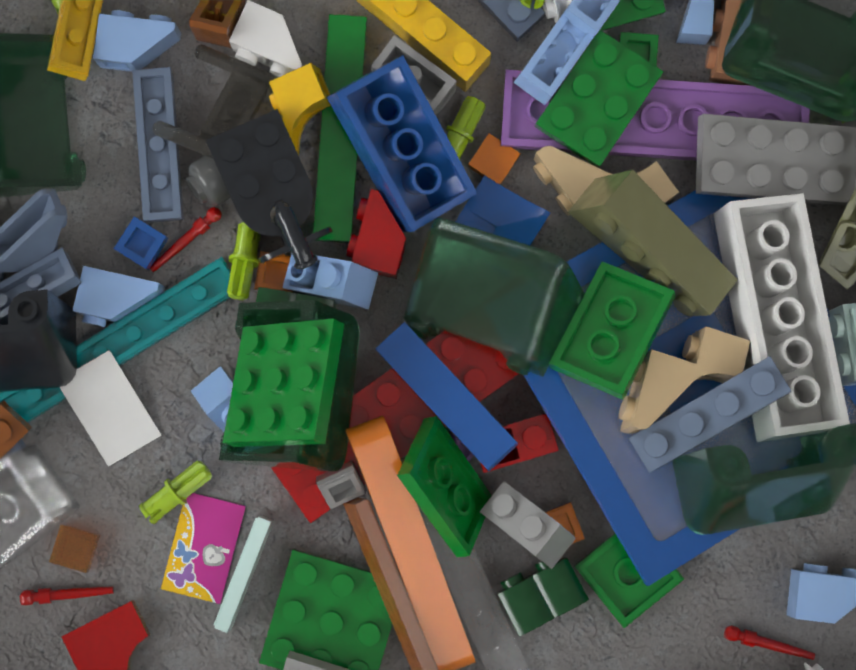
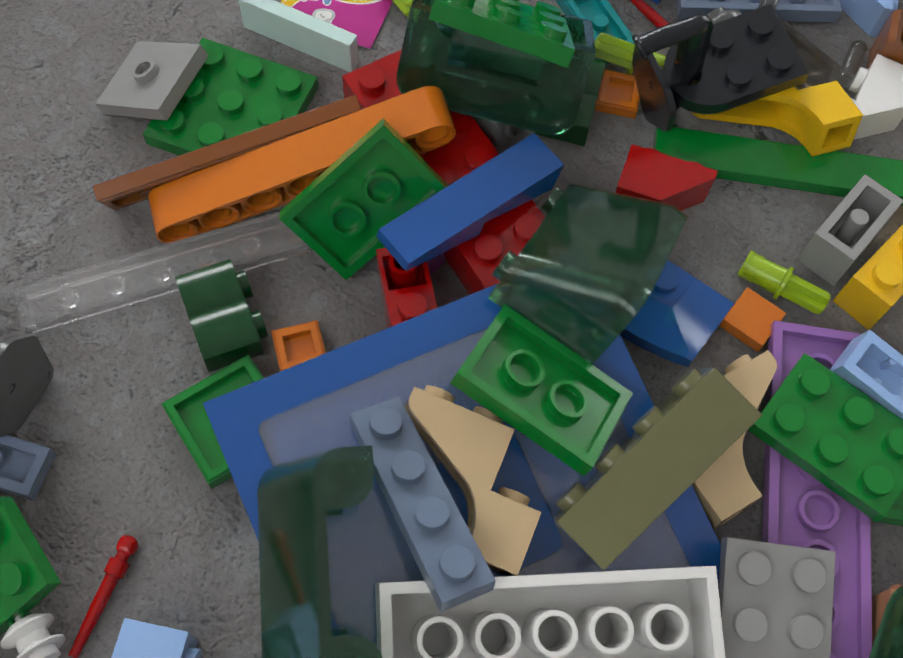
camera: 90 degrees right, 20 degrees down
(334, 280) = (610, 134): light blue slope -> none
(340, 485) = (377, 85): light grey slope -> none
(402, 145) = (775, 197): blue slope -> none
(528, 524) = (305, 295): light grey brick -> none

